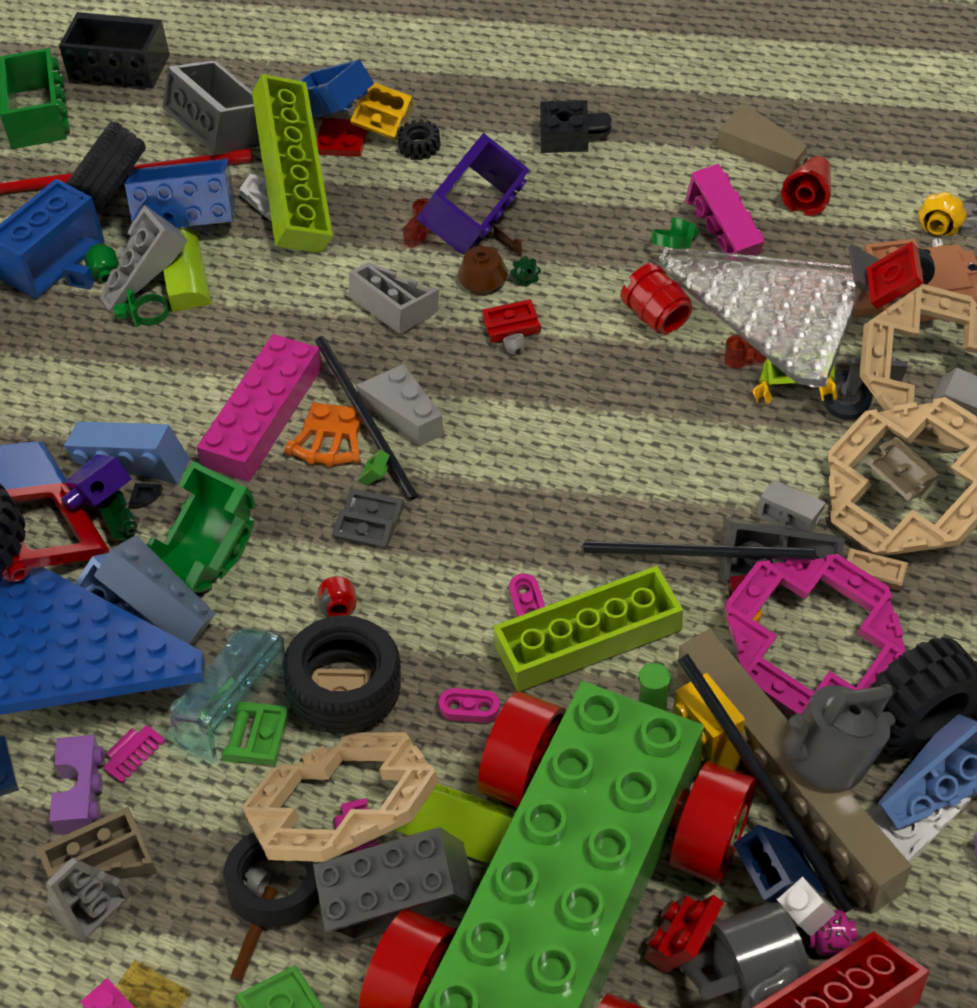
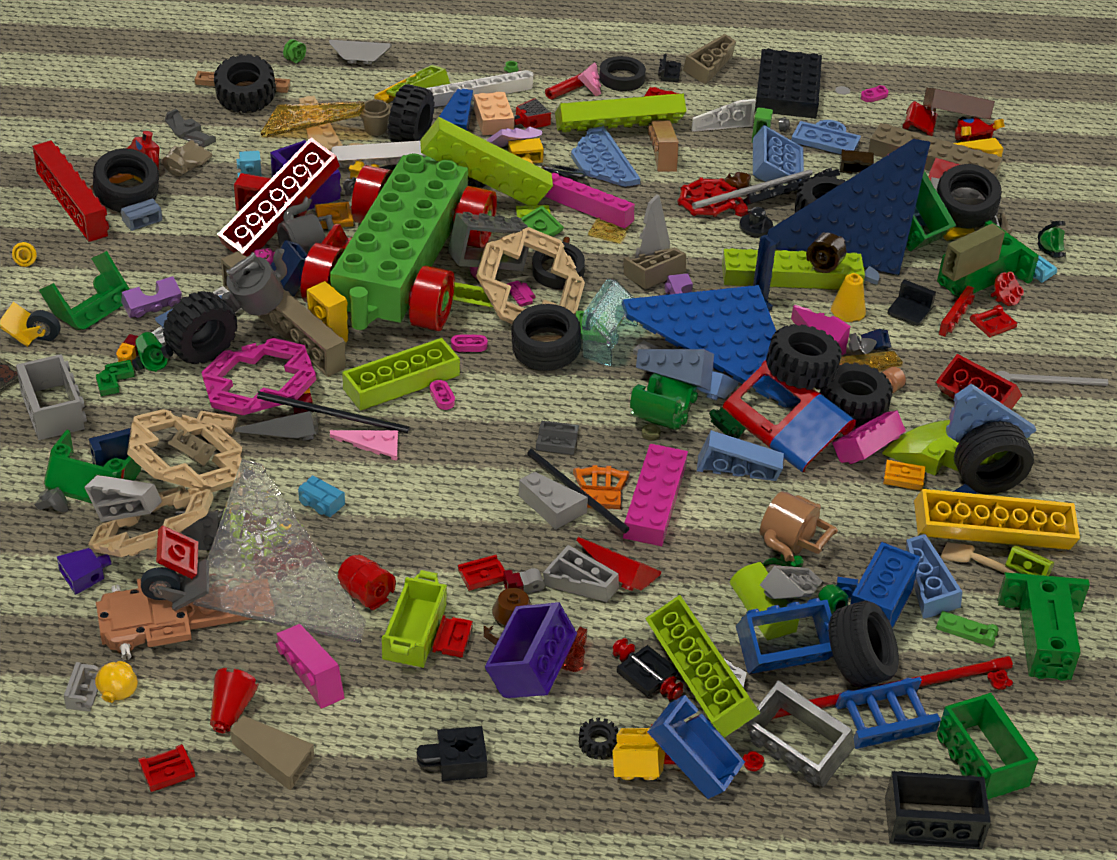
camera: 165 degrees right, 10 degrees down
(88, 131) = (884, 731): none -> blue fence
(95, 482) = (747, 425): dark purple torso -> none
(107, 332) = (792, 524): none -> medium nougat piece
(336, 596) = (564, 387): red head -> none
(338, 316) = (631, 572): none -> red wedge
(350, 202) = (647, 670): none -> black plate
(374, 468) = (561, 461): bright green plate -> none
(462, 304) = (527, 581): none -> leg
(513, 343) = (479, 551): light grey hinge -> none
(525, 271) = (477, 611): dark green plant -> none
(558, 248) = (453, 636): none -> red plate
(602, 250) = (415, 620): none -> lime container
(630, 524) = (375, 441): none -> bright pink wing
(678, 237) = (341, 655): green piece -> none
(713, 431) = (321, 496): none -> dark azure brick
(765, 783) = (314, 281): black piece -> none
(789, 507) = (269, 449): light grey hinge -> none
(806, 907) = (273, 242): white brick -> none
(869, 130) = (172, 768): none -> red plate

